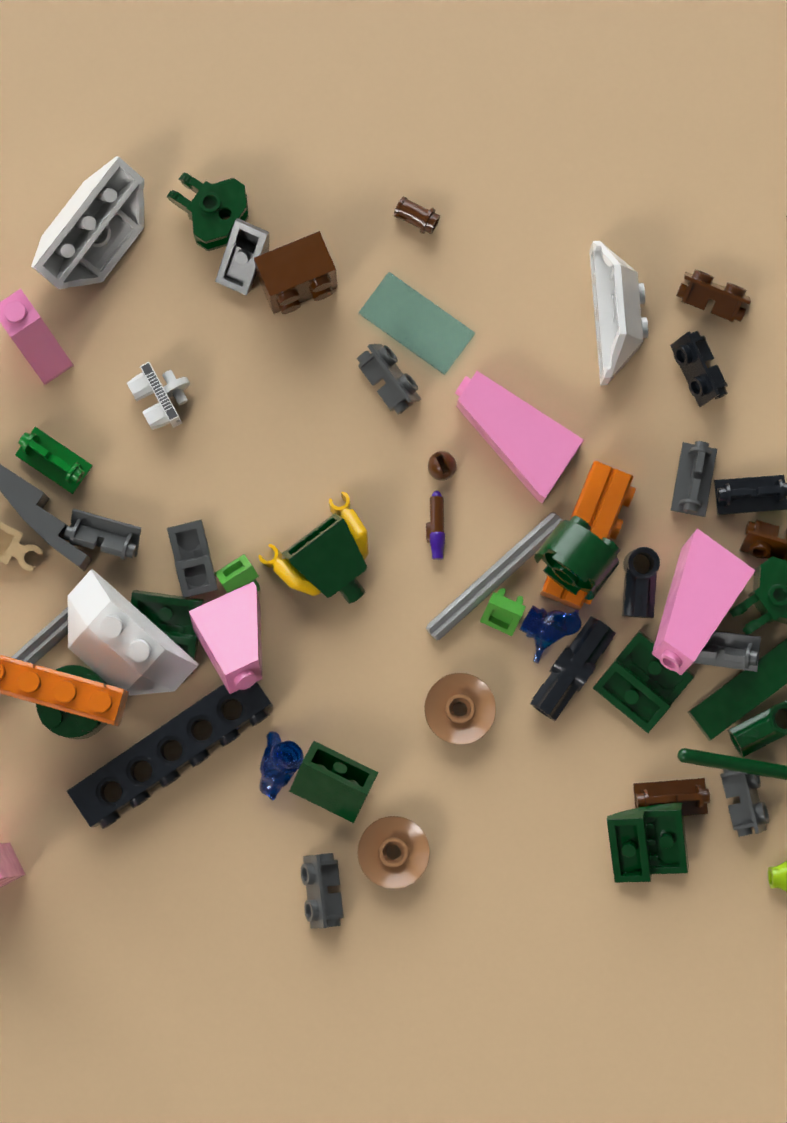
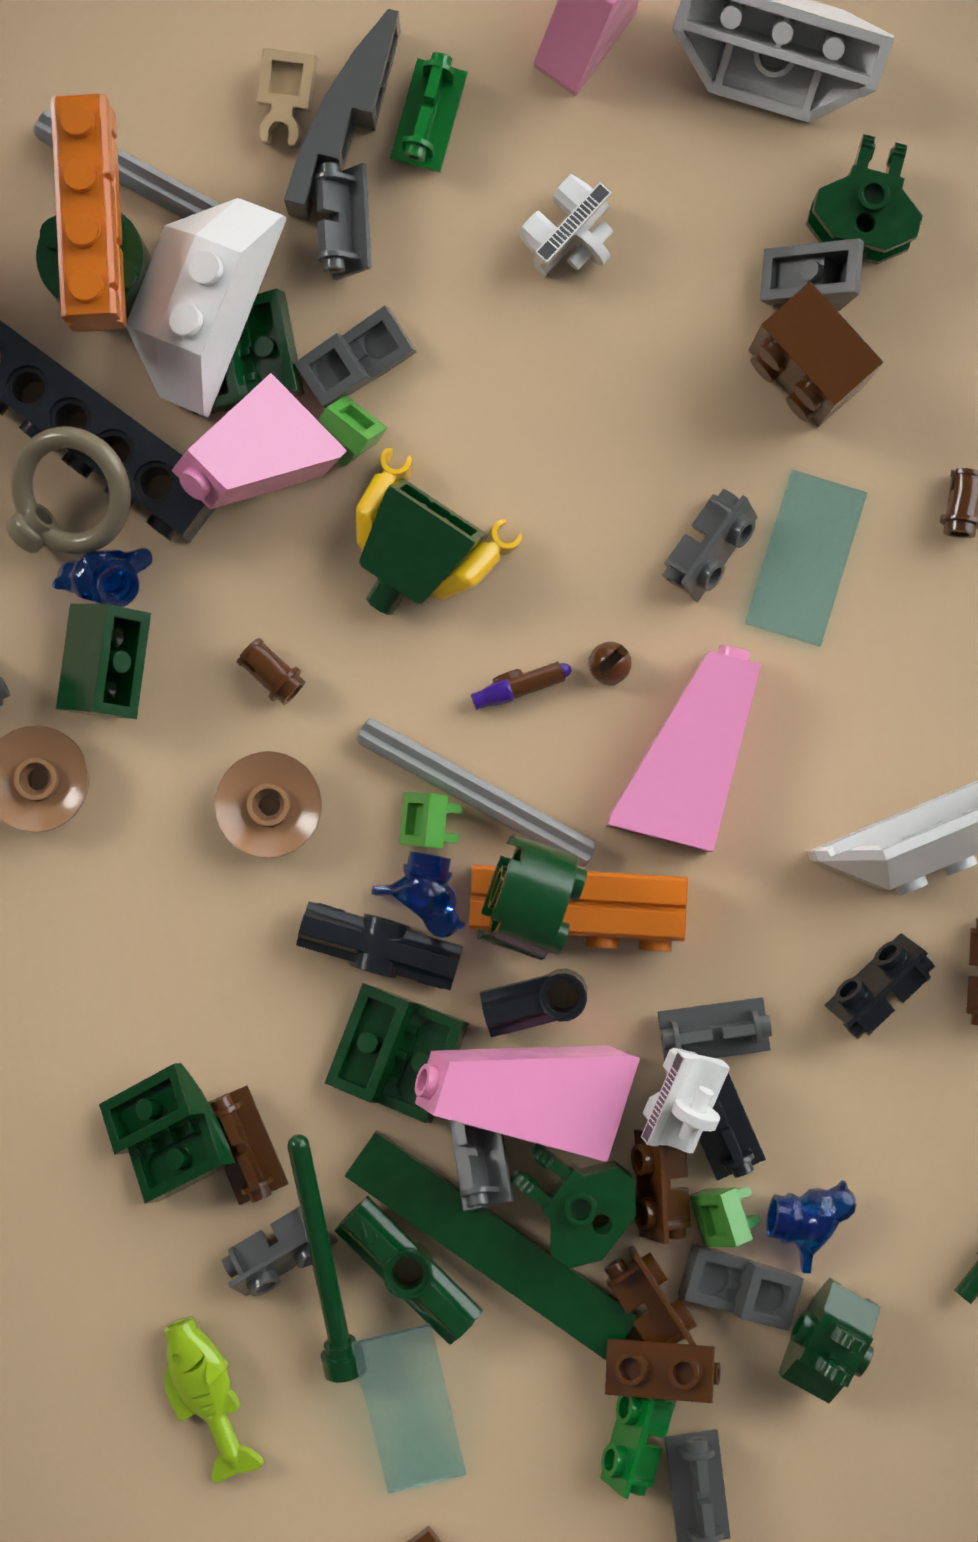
camera: 75 degrees right, 5 degrees up
(229, 798) = (35, 525): none -> dark tan piece
(375, 679) = (271, 671): none -> reddish brown pin
(734, 508) = (685, 1101): none -> white hips

